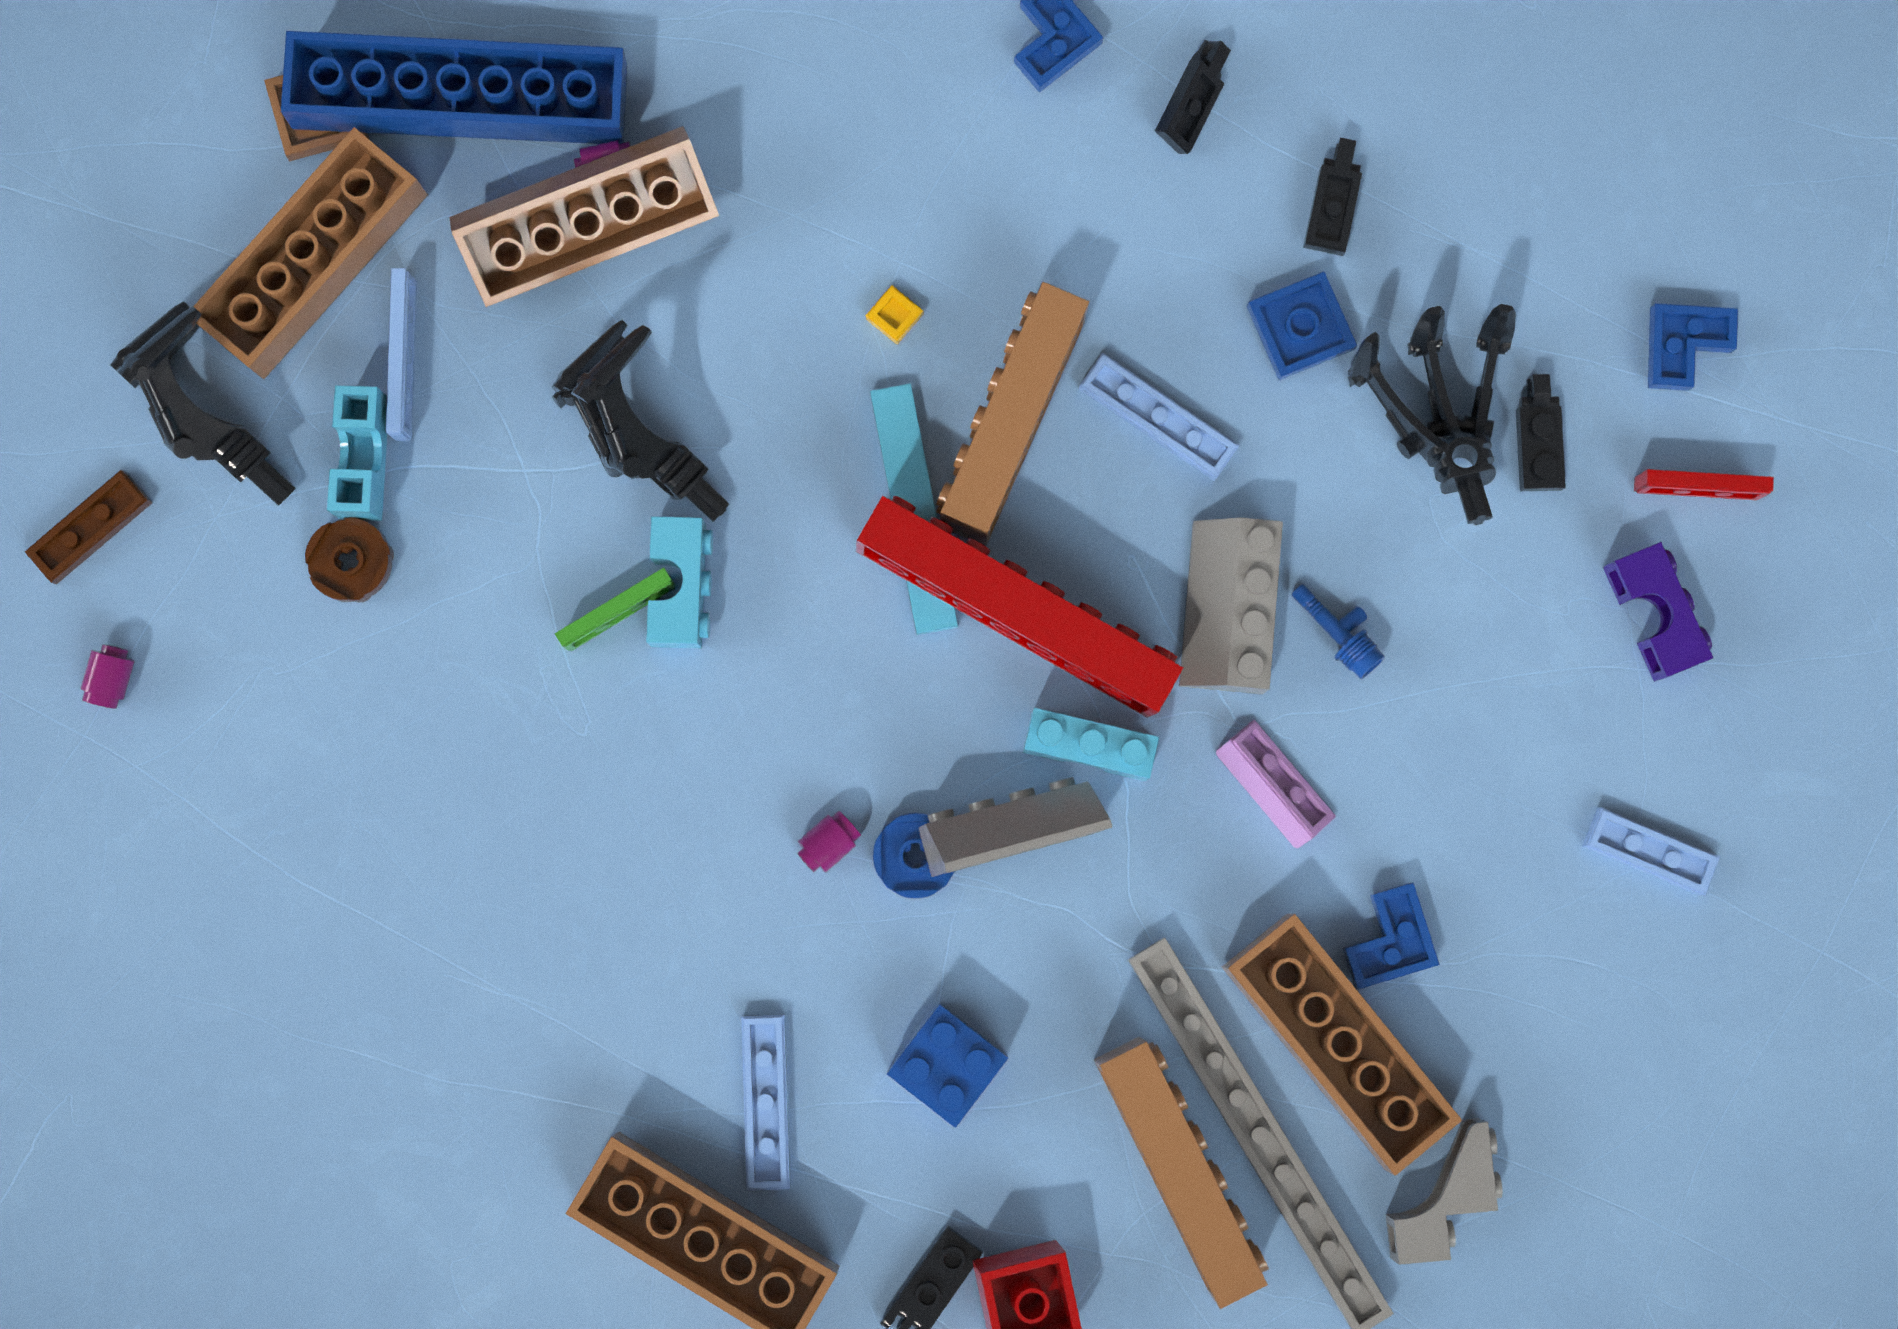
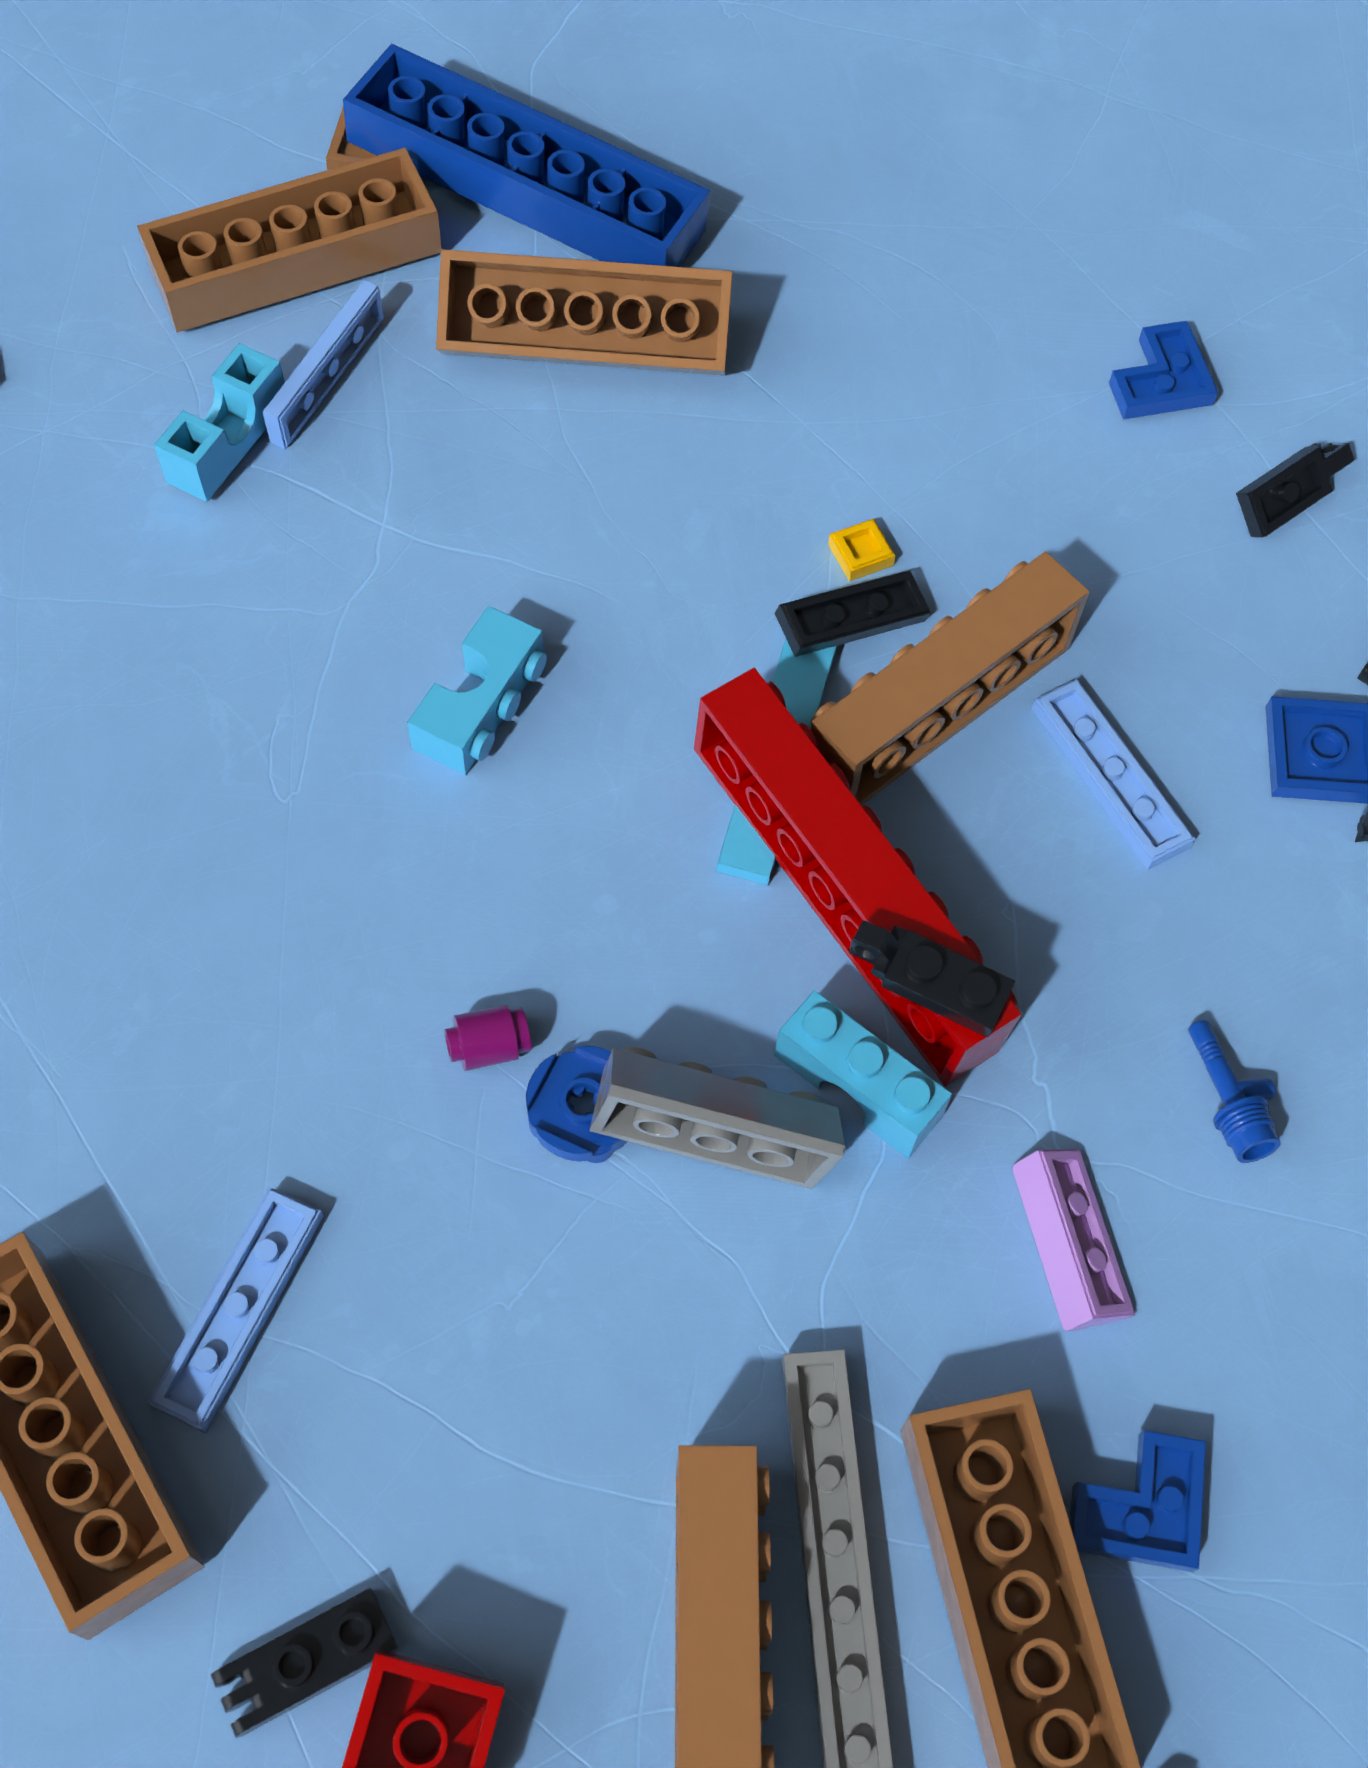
camera: 25 degrees right, 20 degrees down
(180, 422) = (65, 312): black piece -> none
(356, 583) = (153, 542): reddish brown plate -> none
(615, 610) = (388, 684): bright green tile -> none
(617, 434) = (502, 517): black piece -> none
(916, 380) = (852, 613): none -> black tile
(947, 1065) = (486, 1368): blue brick -> none
(1117, 673) = (933, 976): none -> black hinge
(1231, 605) = (1108, 1003): light grey slope -> none

